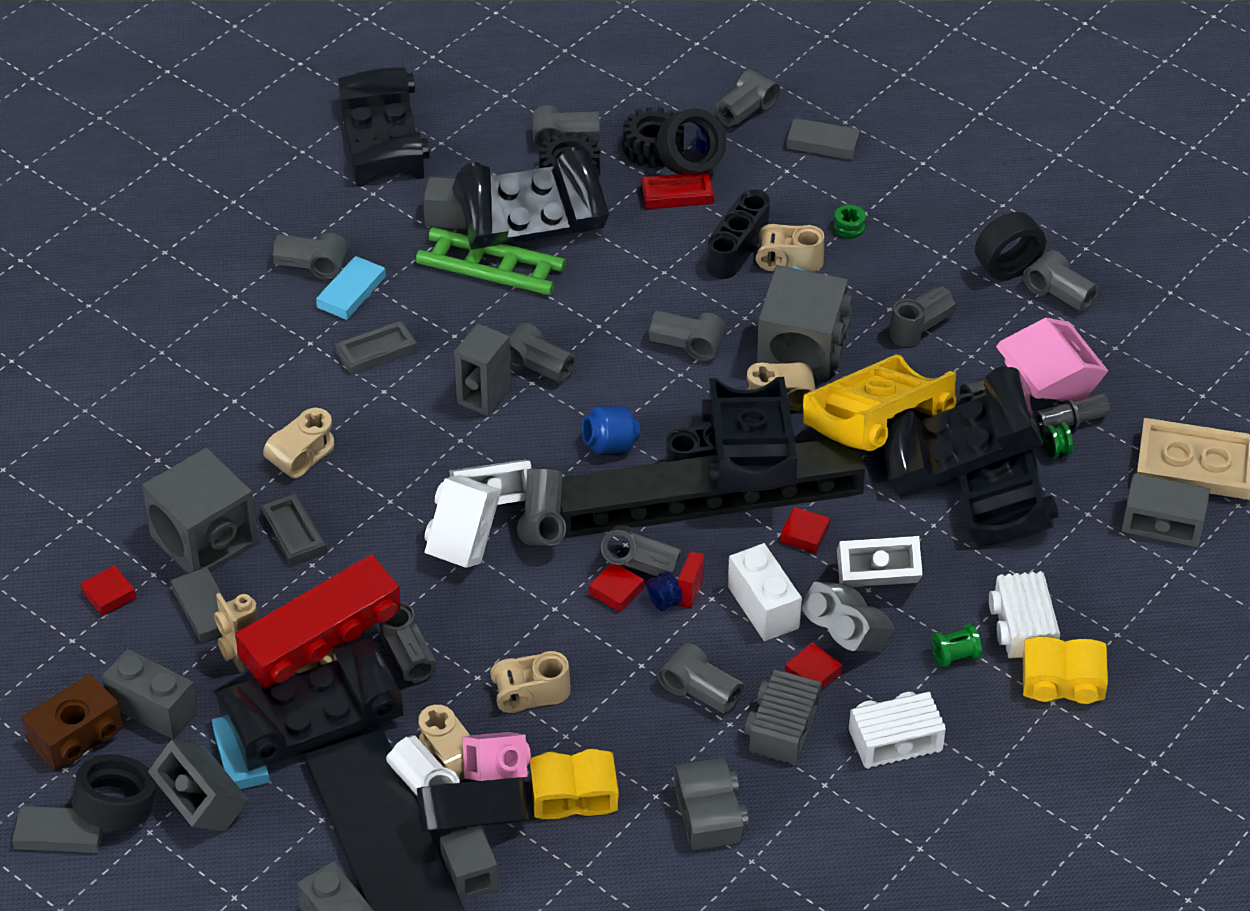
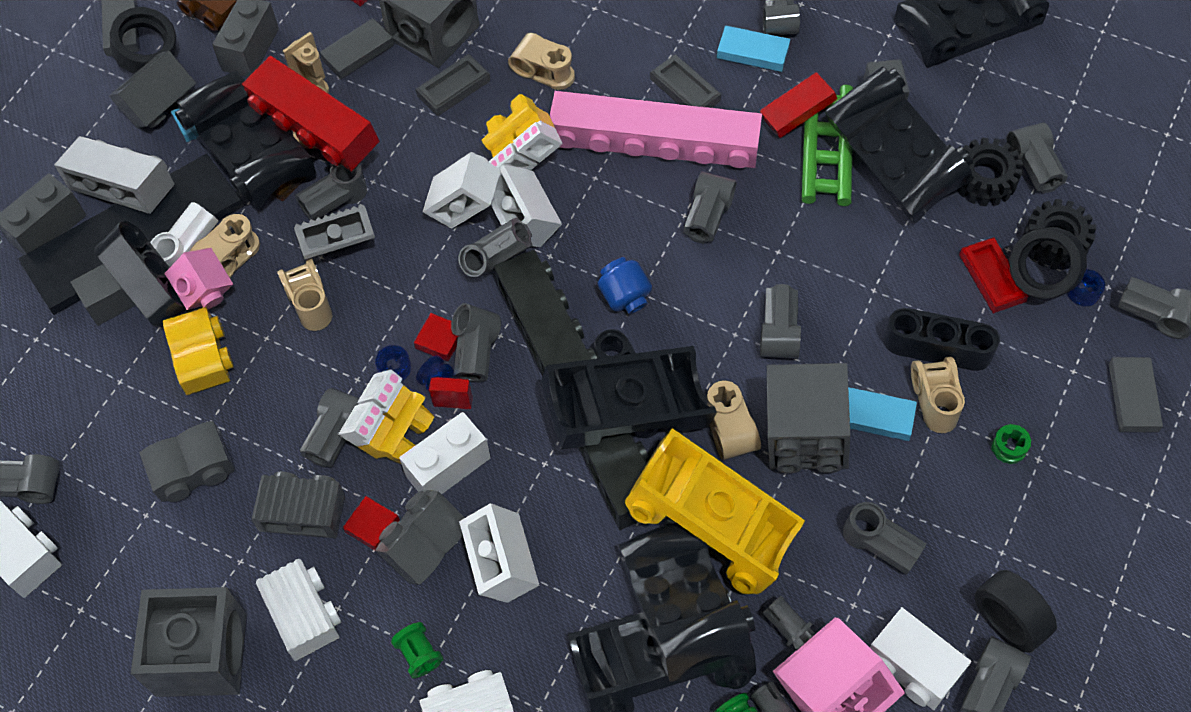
camera: 80 degrees right, 15 degrees up
(311, 830) = (115, 174): none -> brick
(405, 452) = (522, 136): none -> hips
(424, 379) = (656, 129): none -> bright pink brick
(443, 265) = (798, 104): none -> red tile
(468, 640) = (334, 231): none -> light grey brick
(483, 369) = (657, 161): dark grey brick -> none
(630, 634) = (394, 352): none -> clear blue bush
(709, 624) = (385, 416): none -> hips
(805, 530) = (548, 483): red tile -> none
(925, 794) = (189, 642): none -> dark grey brick
(1030, 307) = (919, 659): none -> white brick

